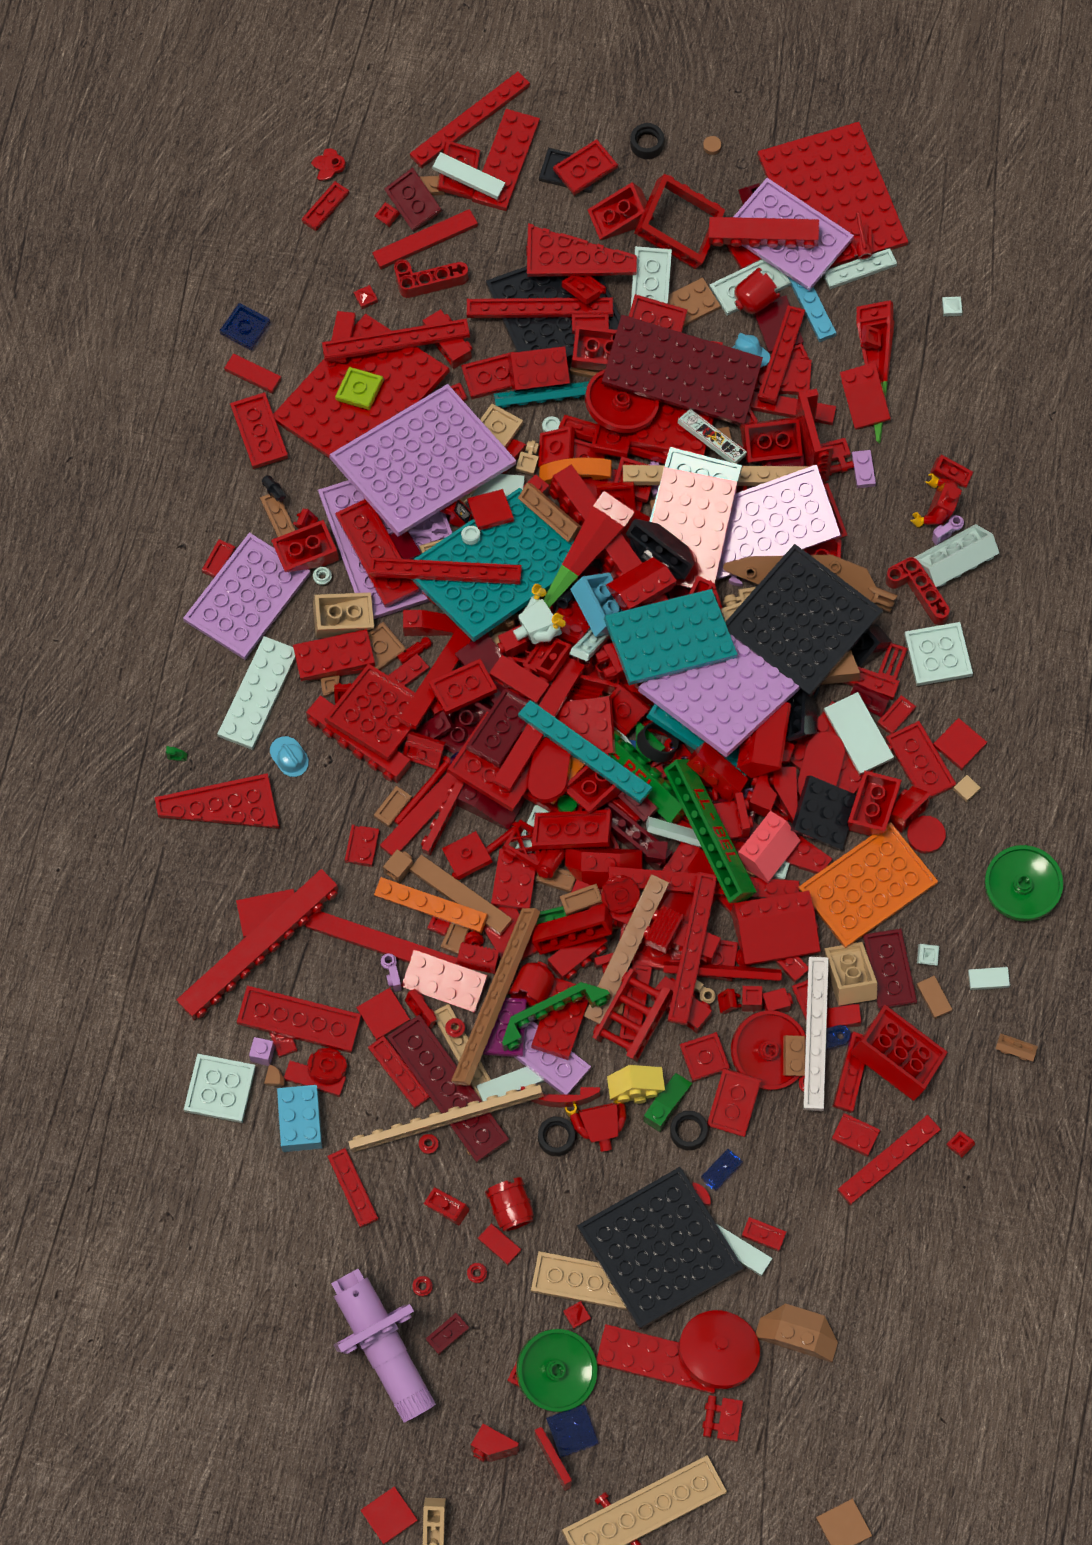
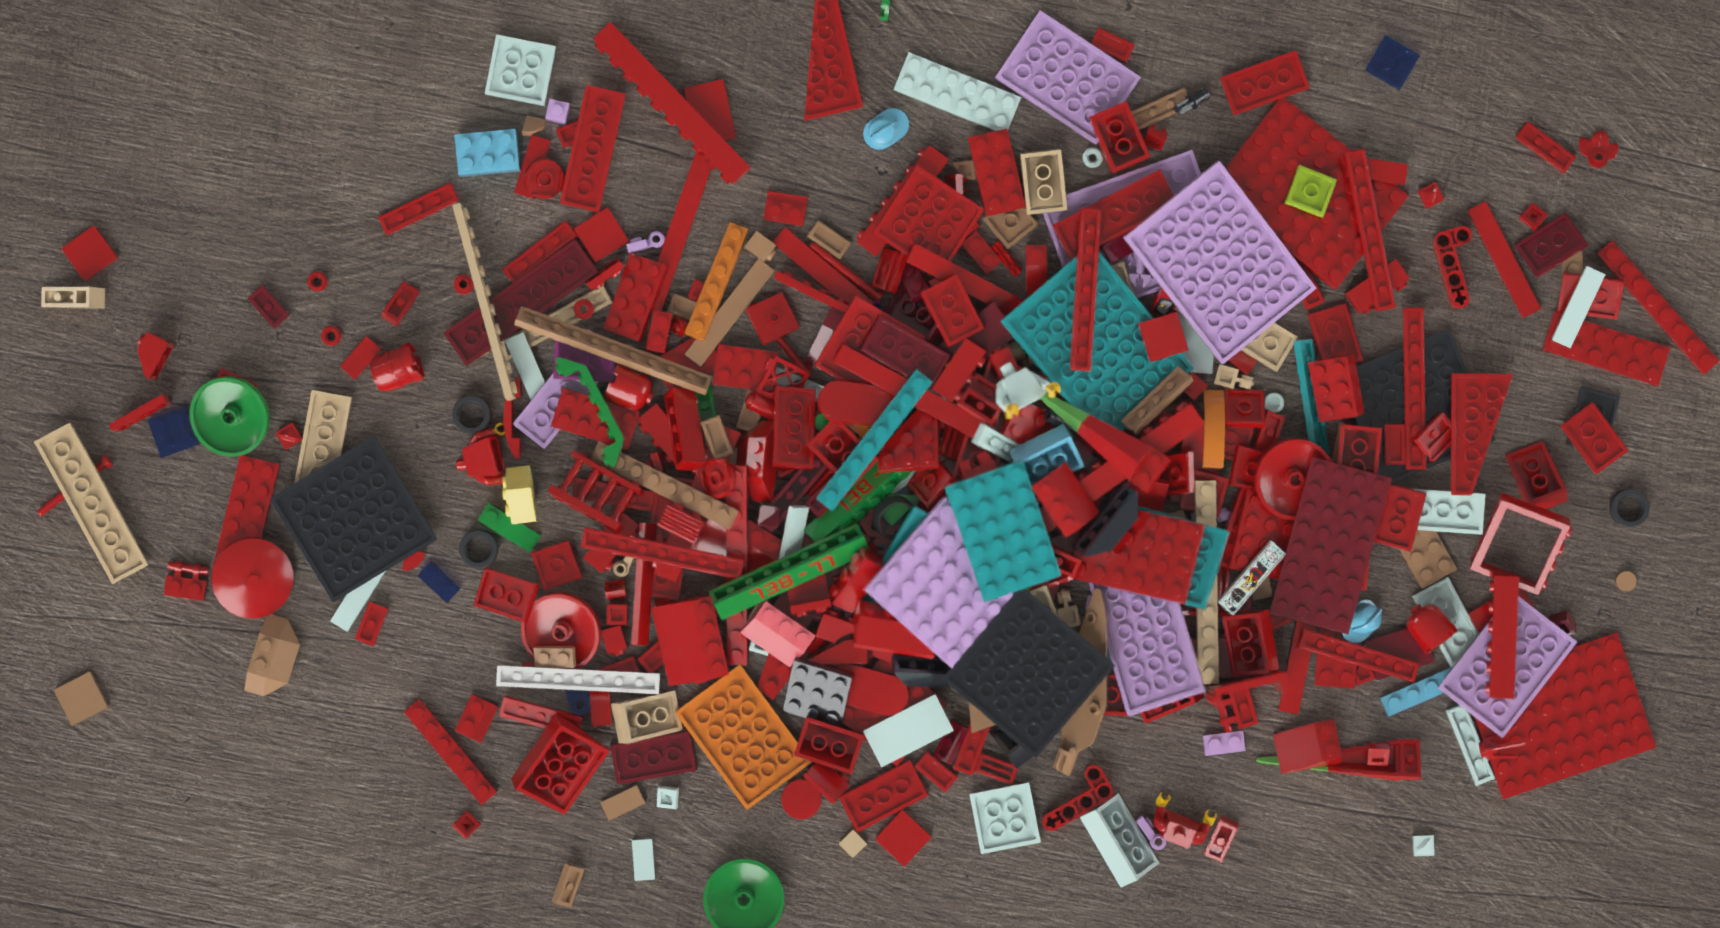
camera: 90 degrees right, 20 degrees up
(252, 373) = (1335, 73): red tile -> none
(381, 1343) = (258, 234): lavender piece -> none
(470, 535) = (1130, 316): light aqua tile -> none

